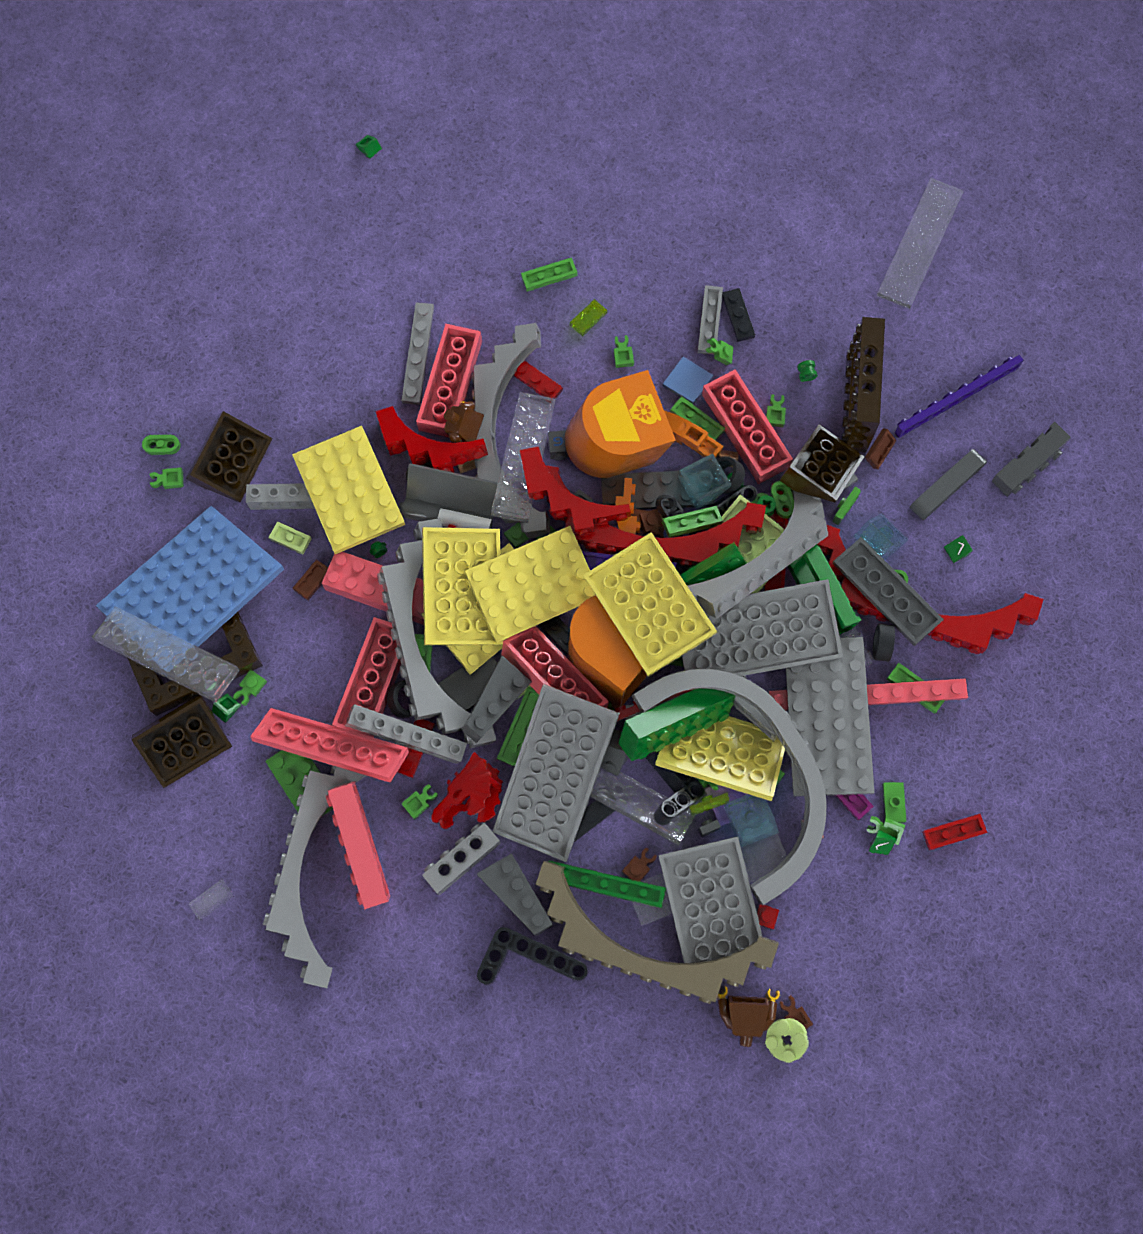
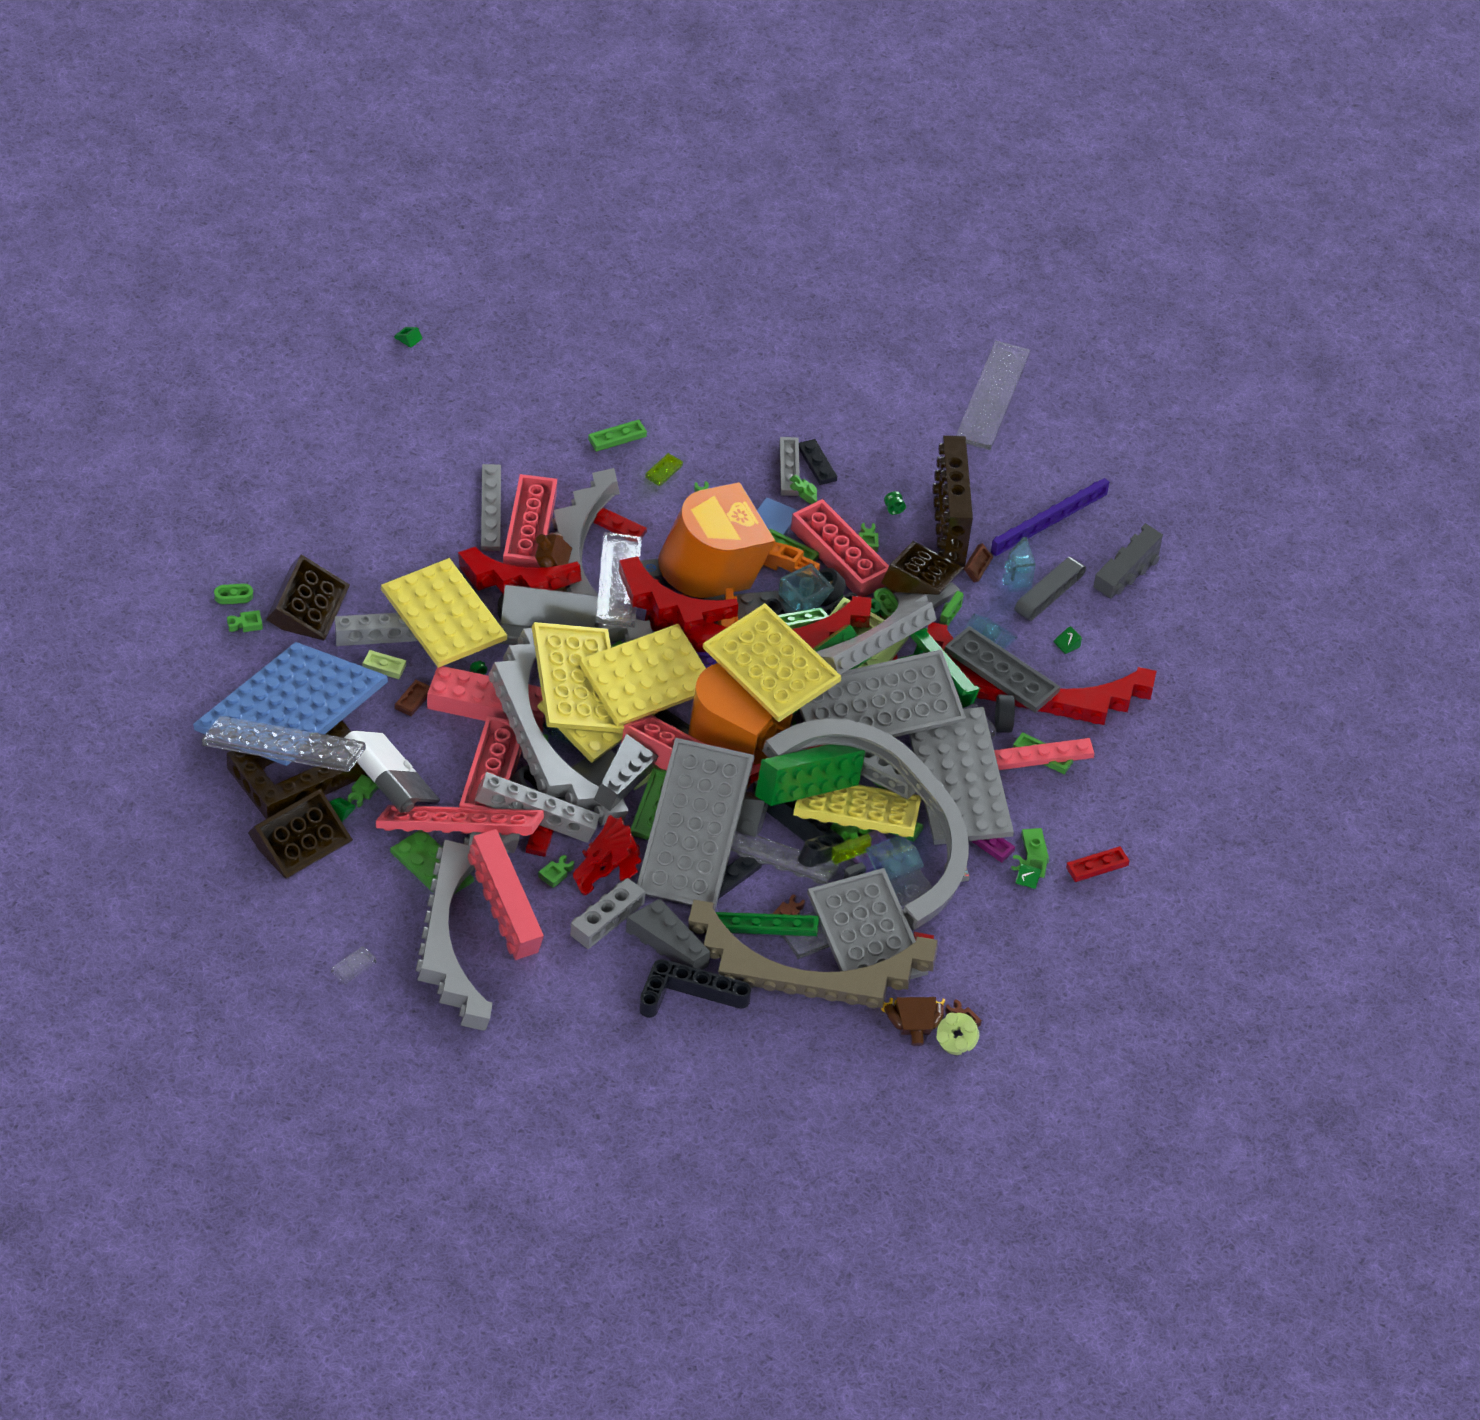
camera: 15 degrees left, 25 degrees down
(273, 675) = (392, 772): none -> door
(921, 462) = (1019, 567): none -> clear light blue slope

